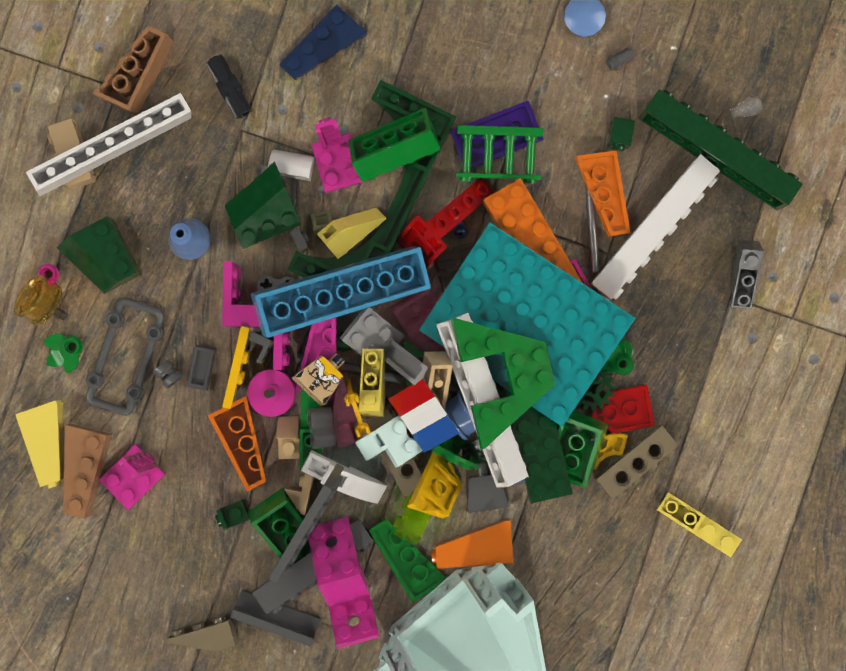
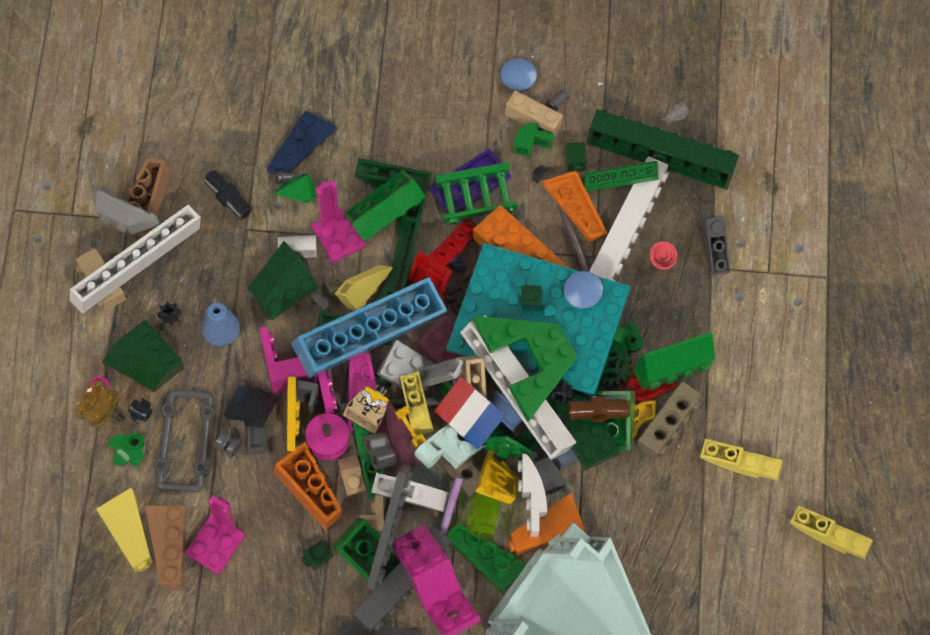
camera: 15 degrees left, 20 degrees down
(83, 314) = (140, 410): none -> black gear
(102, 87) = (121, 213): none -> light grey wedge
(133, 207) = (170, 319): none -> black gear
(199, 339) = (250, 406): none -> black slope
(296, 82) = (282, 178): none -> dark grey pin
(304, 101) = (298, 189): none -> green slope
(381, 500) = (450, 505): none -> lavender bar
(470, 507) = (532, 488): none -> white slope
(523, 306) = (531, 298): none -> dark green brick
(530, 417) = (561, 392): none -> black gear
(562, 444) = (598, 409): none -> reddish brown piece
(574, 96) = (529, 136): none -> green brick
(575, 142) = (538, 173): none -> black tile
(582, 310) = (583, 290): none -> medium blue dish
(588, 71) = (530, 111): none -> tan brick
(661, 404) = (675, 361): none -> green slope
(665, 171) = (622, 176): none -> green tile
(683, 274) = (663, 255): none -> coral hair
(769, 626) = (829, 533): none -> light yellow slope

